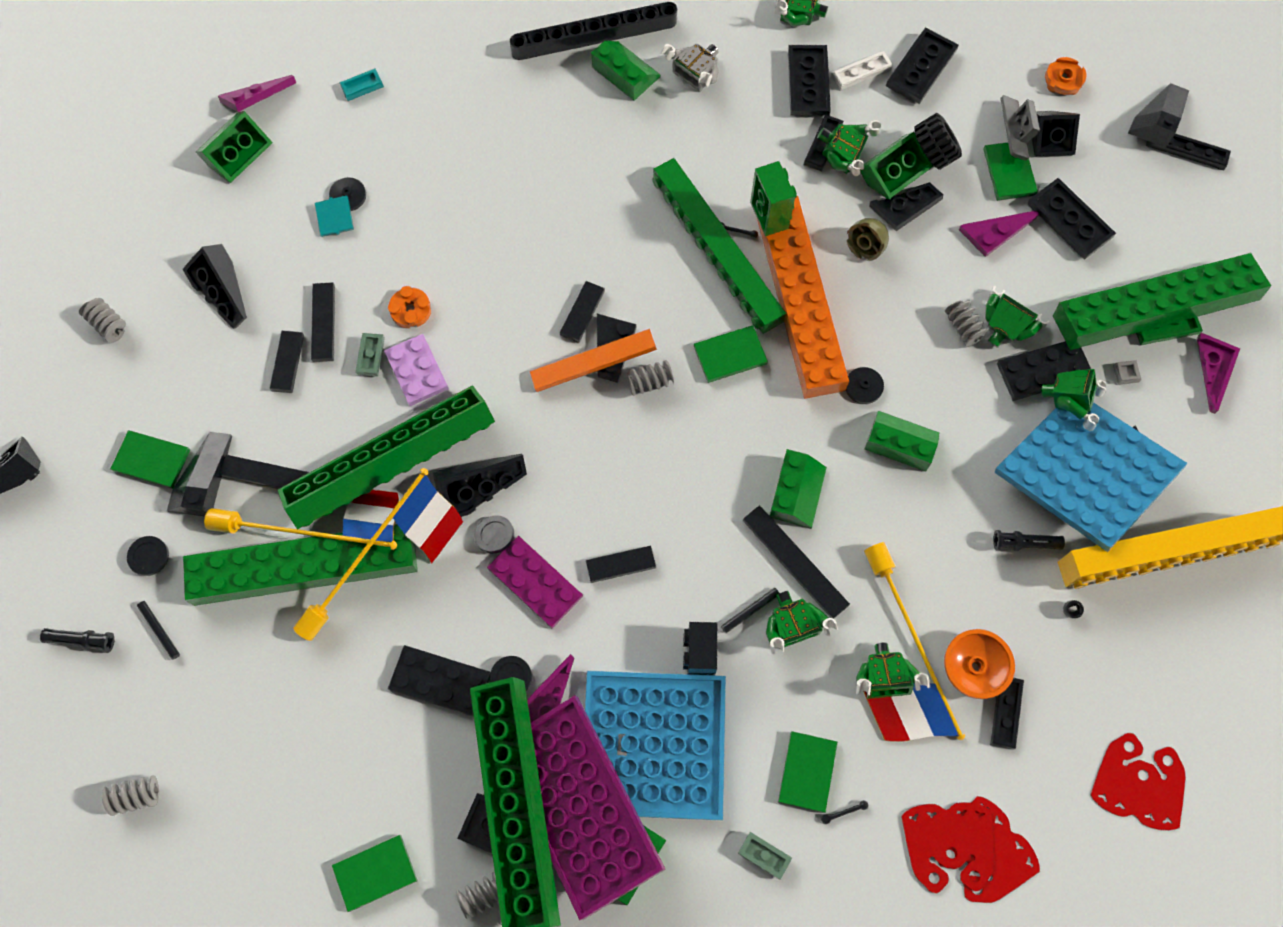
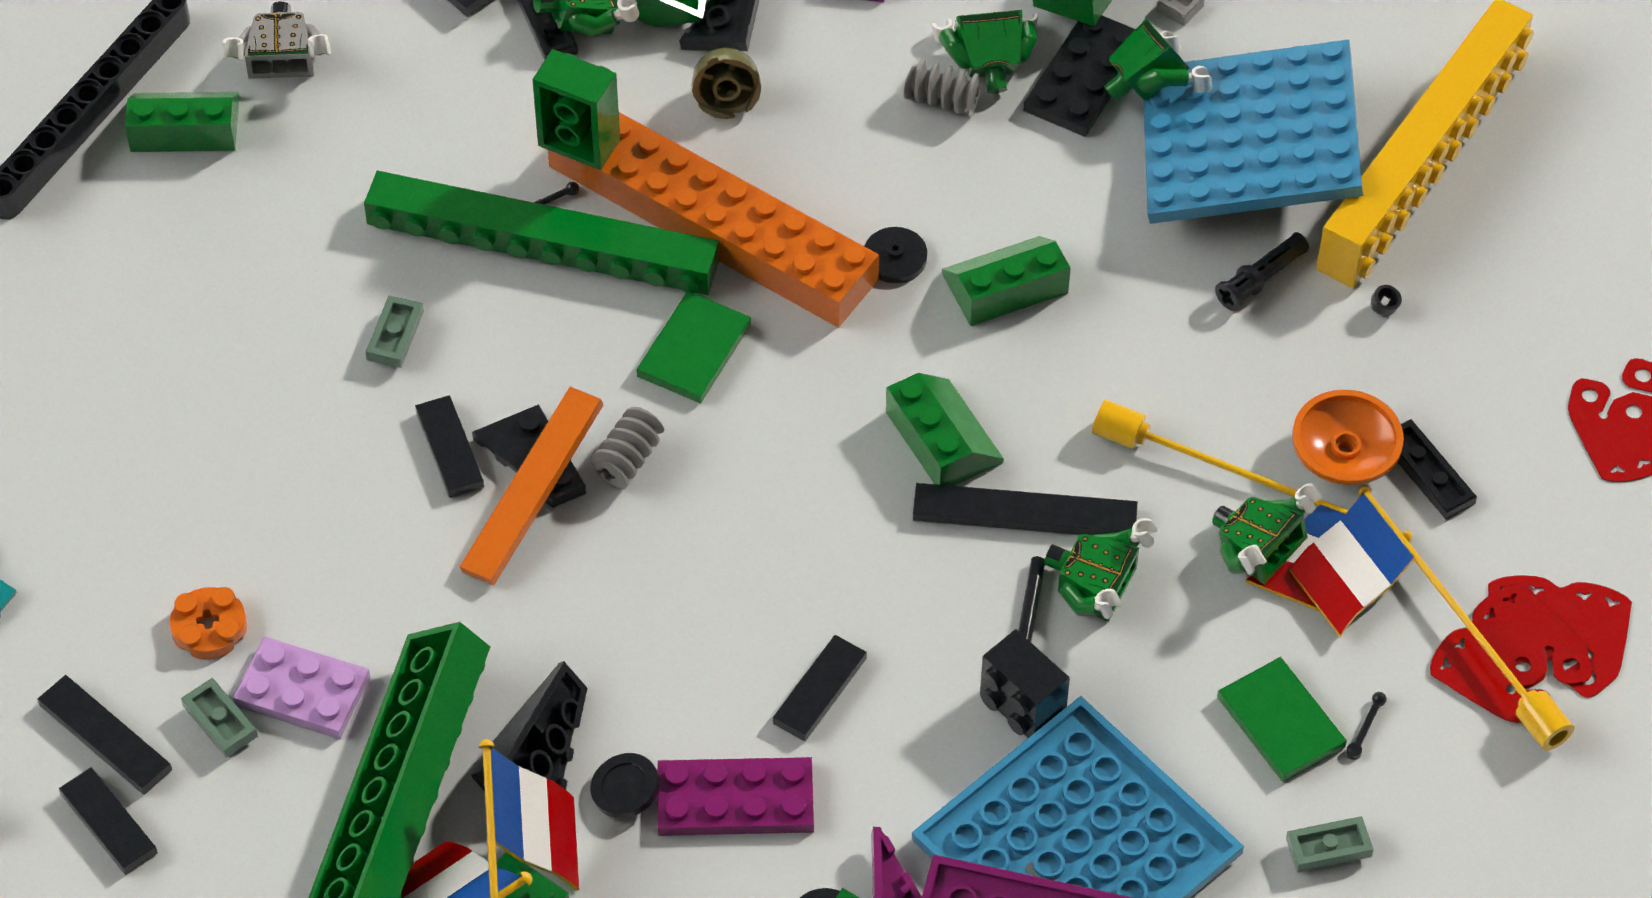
camera: 45 degrees left, 15 degrees down
(611, 239) = (394, 331): none -> sand green plate
(924, 730) = (1363, 560): none -> flag

